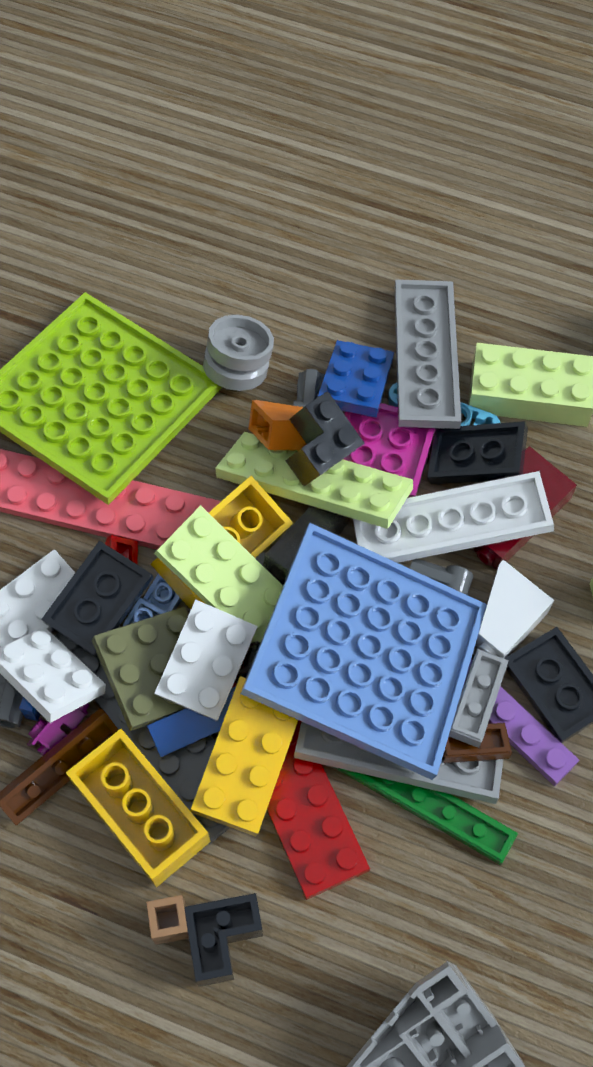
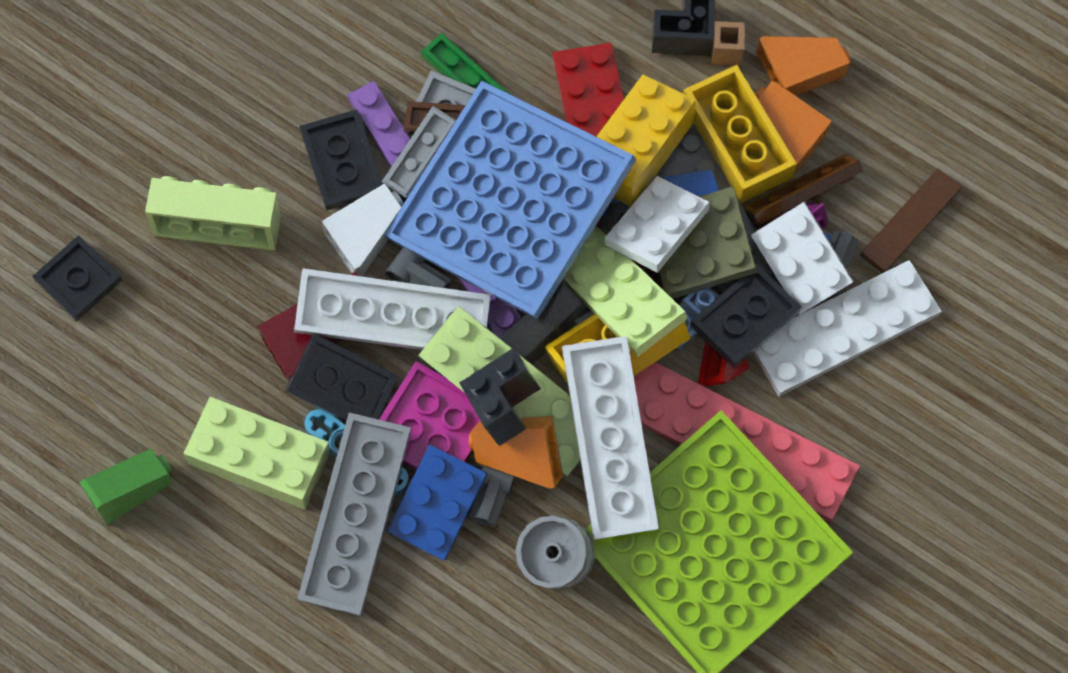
camera: 170 degrees left, 5 degrees up
(76, 923) = (802, 61): none -> orange slope
(82, 839) = (795, 121): none -> orange slope
(210, 441) = (610, 437): none -> white plate

